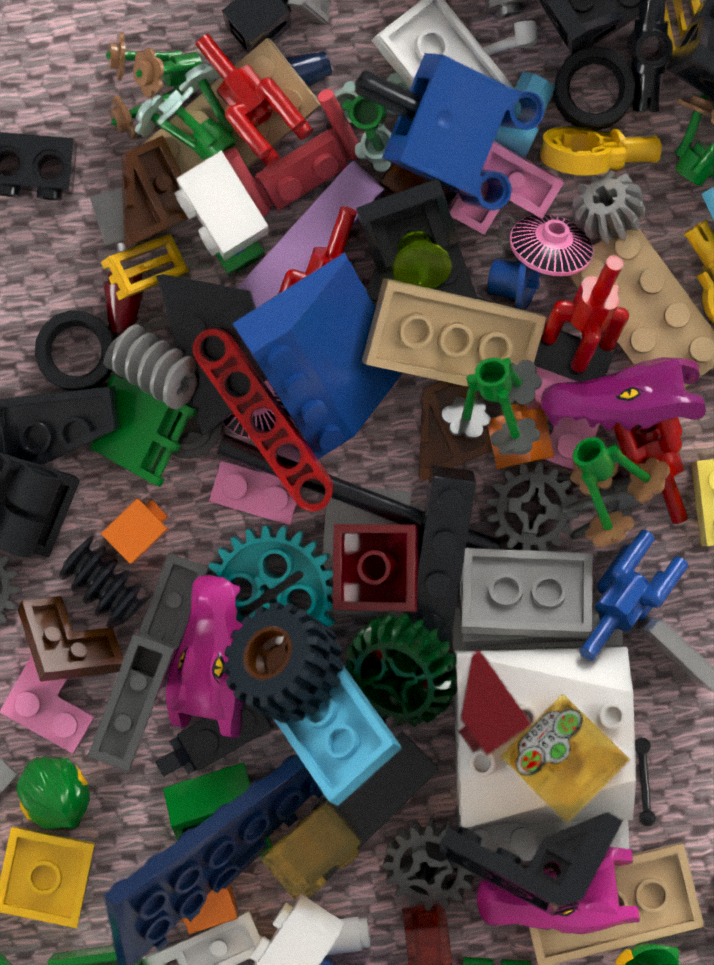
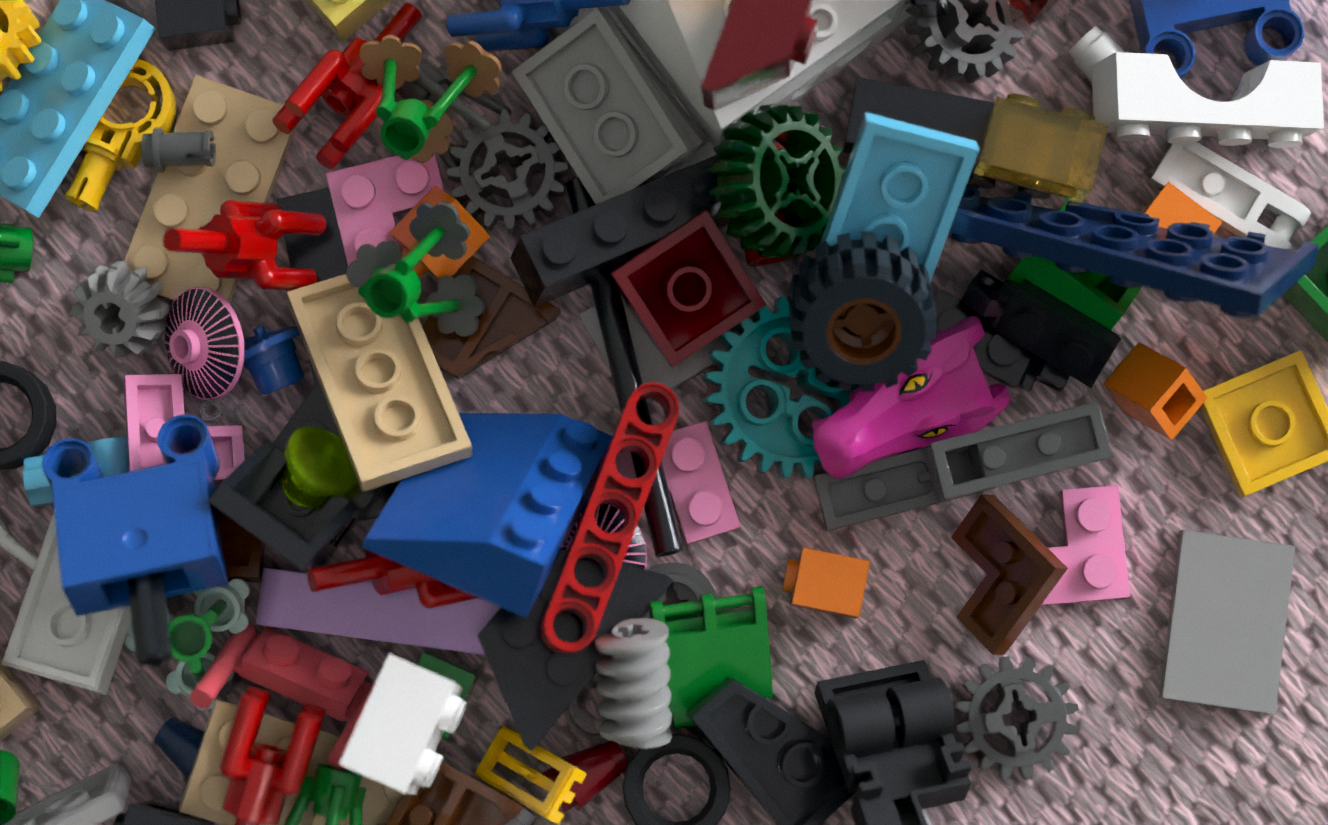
camera: 120 degrees left, 5 degrees down
(53, 793) = (1175, 478): green hair -> none
(102, 583) = (910, 578): black piece -> none
(113, 817) = (1155, 390): none -> orange brick
(202, 774) = (1043, 325): none -> black hinge
(595, 150) = (69, 364): yellow pin -> none
(631, 396) = (309, 137): magenta animal -> none
(686, 310) = (178, 149): none -> dark grey pin

